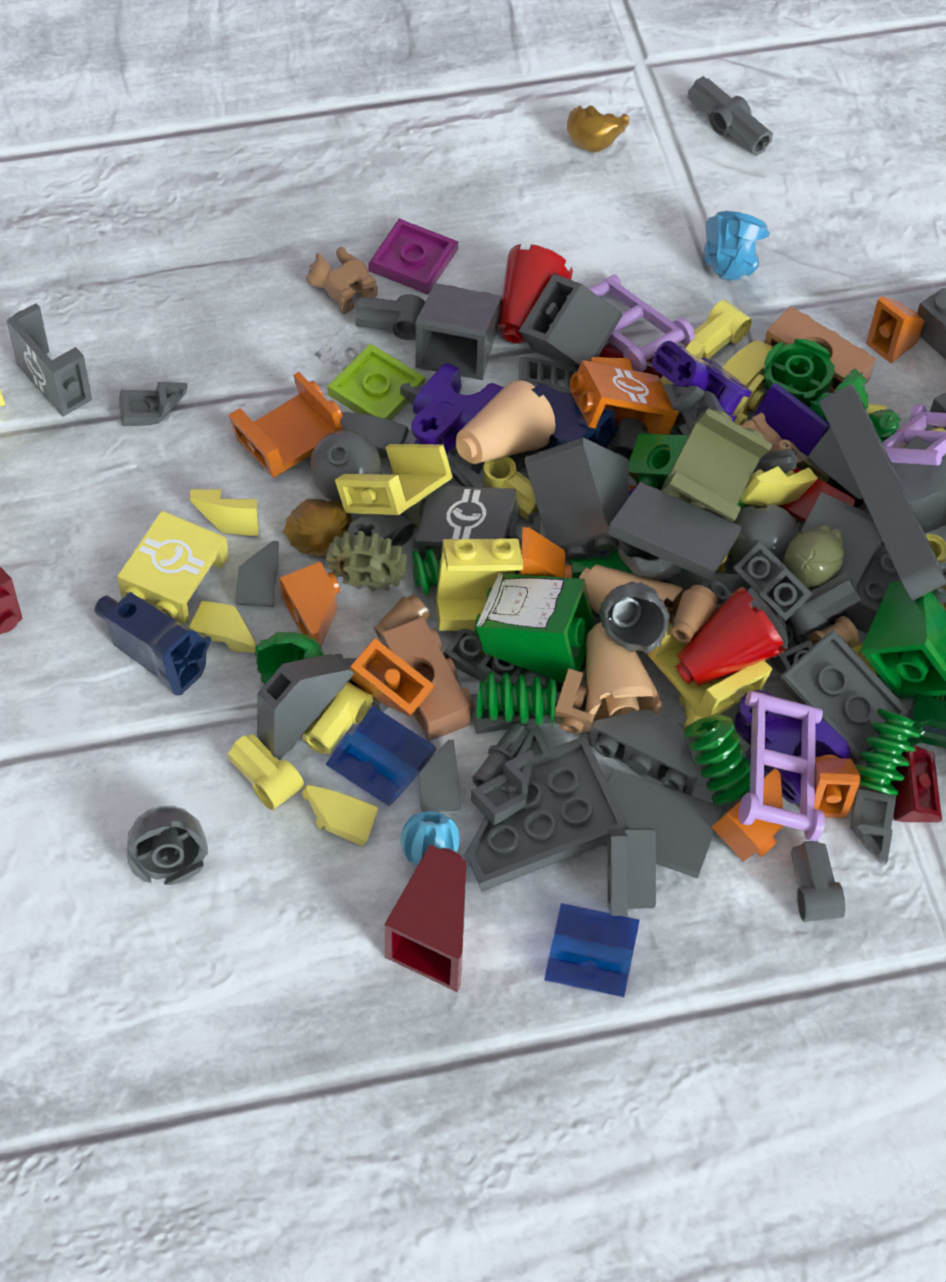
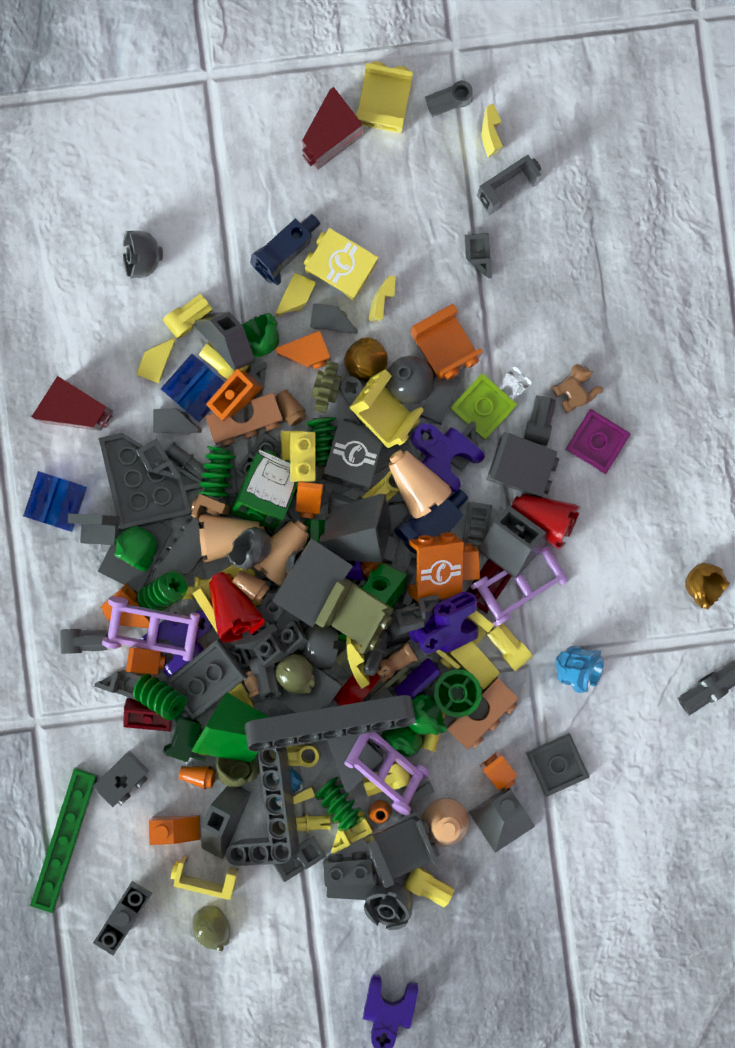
camera: 90 degrees right, 30 degrees up
(428, 829) = (128, 411): medium azure piece -> none
(652, 797) = (136, 547): none -> green hair
(870, 273) = (557, 765): none -> dark grey tile

